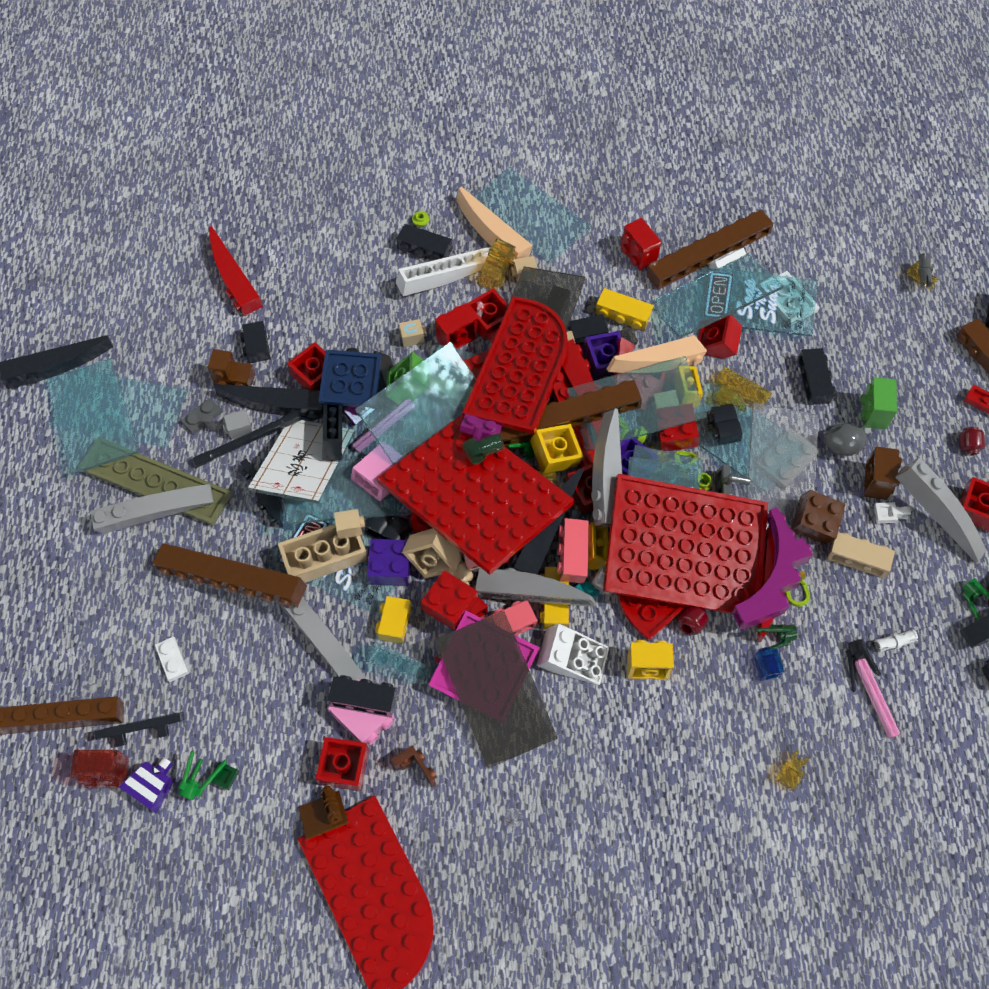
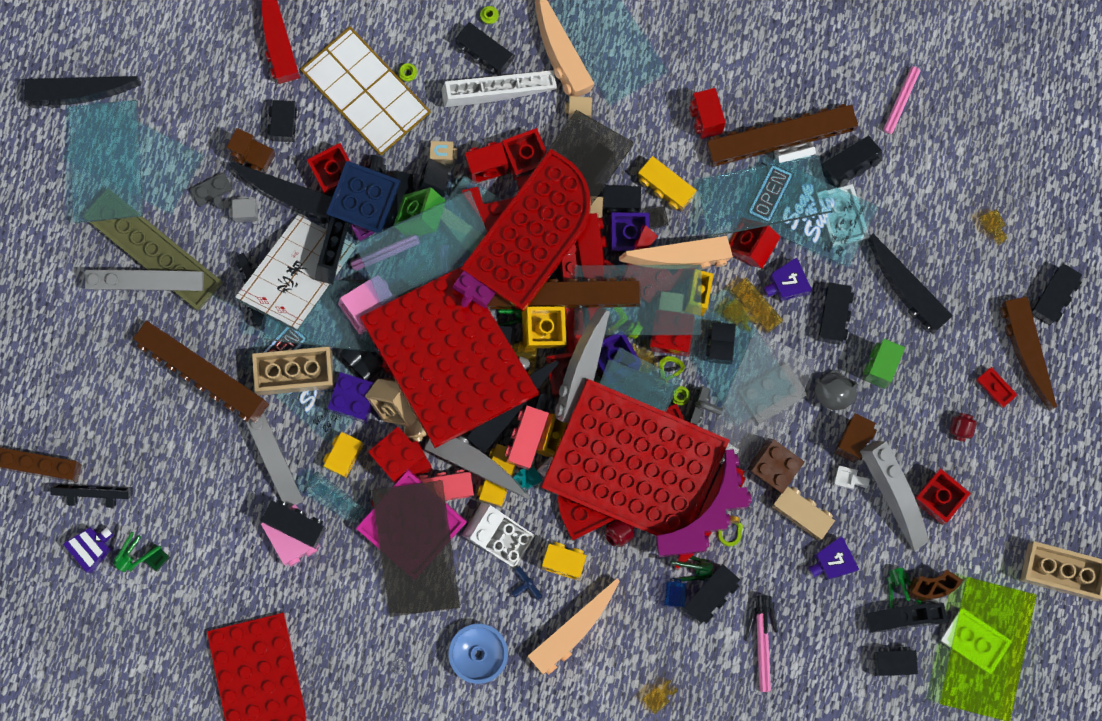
camera: 15 degrees right, 15 degrees up
(99, 768) = (50, 522): clear red brick -> none
(171, 659) = (132, 435): white plate -> none
(210, 455) = (210, 236): black piece -> none
(323, 813) = (234, 617): reddish brown hinge -> none
(326, 303) = (365, 91): none -> white piece
(342, 764) = (261, 578): red brick -> none
(349, 523) = (322, 354): tan brick -> none
(360, 274) = (407, 66): none -> lime plate
(405, 758) = (318, 589): copper bracket -> none
(408, 345) = (434, 176): none -> black brick
(478, 450) = (464, 315): clear green piece -> none
(496, 265) = (550, 98): clear yellow brick -> none
(598, 764) = (478, 638): none -> medium blue dish
(618, 695) = (528, 583): none -> dark blue piece
(679, 733) = (560, 643): none -> light nougat slope
(764, 361) = (788, 282): none -> dark purple torso
(781, 252) = (852, 162): none -> black brick
(799, 201) = (901, 100): none -> bright pink axle
(805, 654) = (712, 595): none -> black brick
(871, 339) = (909, 289): none -> black slope
(896, 640) = (803, 605): white pin -> none
(908, 590) = (834, 561): none -> dark purple torso
(925, 270) = (996, 225): dark grey pin -> none

